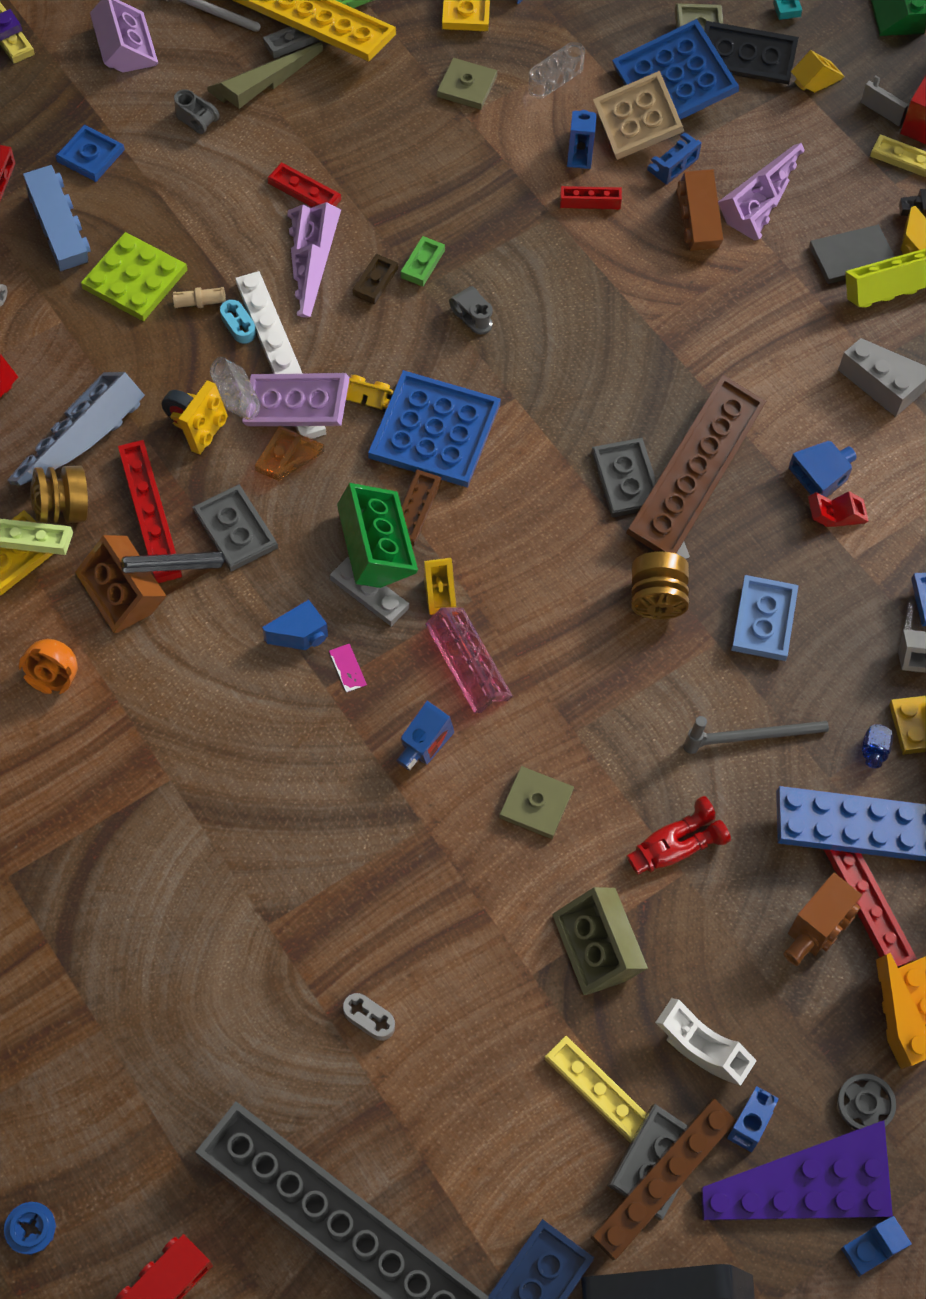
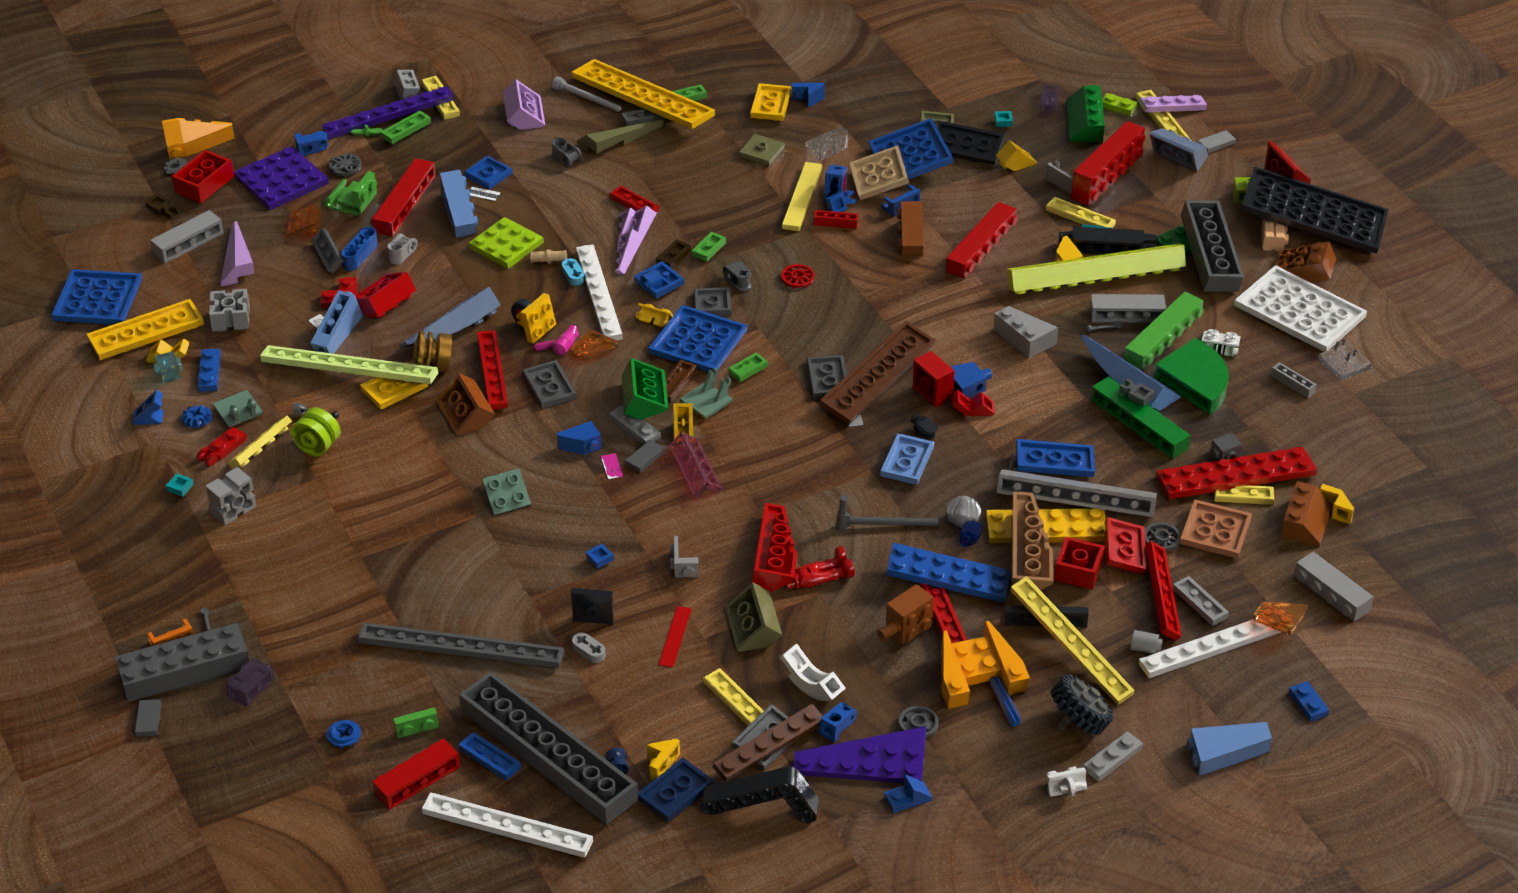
camera: 10 degrees right, 20 degrees down
(49, 666) = (408, 444): orange cylinder -> none
(88, 190) = (483, 193): none -> sticker
(146, 1193) = (416, 722): none -> bright green plate
(171, 562) = (501, 393): black axle -> none
(180, 1035) = (461, 645): none -> dark grey plate
(204, 737) = (506, 491): none -> sand green plate
(235, 388) = (563, 304): clear beam -> none
(245, 452) = (562, 343): none -> dark pink piece
(255, 1247) = (489, 756): none -> blue plate
(299, 399) = (604, 312): lavender plate -> none
(358, 842) = (599, 556): none -> blue plate
(362, 326) = (659, 280): none -> blue plate
(365, 948) = (592, 606): none -> black plate
(393, 647) = (645, 456): none -> dark grey tile
(430, 728) = (656, 499): blue torso -> none
(443, 356) = (713, 301): none -> dark grey tile
(446, 1239) = (618, 758): none -> dark blue wheel
(464, 534) = (708, 399): none -> sand green plate
(485, 853) = (683, 566): none -> light grey bracket
(489, 977) = (675, 636): none -> red sticker
(513, 472) = (747, 367): none -> bright green plate
(513, 1214) = (662, 756): none -> yellow slope
(536, 161) = (802, 196): none -> light yellow tile
(536, 802) = (726, 546): olive plate -> none
(554, 301) = (798, 276): none -> red wheel
(590, 168) = (838, 201): none -> blue plate
(611, 820) = (775, 550): none -> red wedge
(660, 585) = (835, 431): pearl gold wheel -> none
(750, 203) = (953, 229): lavender wedge -> none
(779, 557) = (924, 426): none -> black arm
(780, 476) = (933, 378): none -> red brick
(796, 219) = (981, 240): none -> red brick
(849, 251) = (1010, 259): dark grey tile -> none
(862, 709) = (963, 510): none -> light grey hair

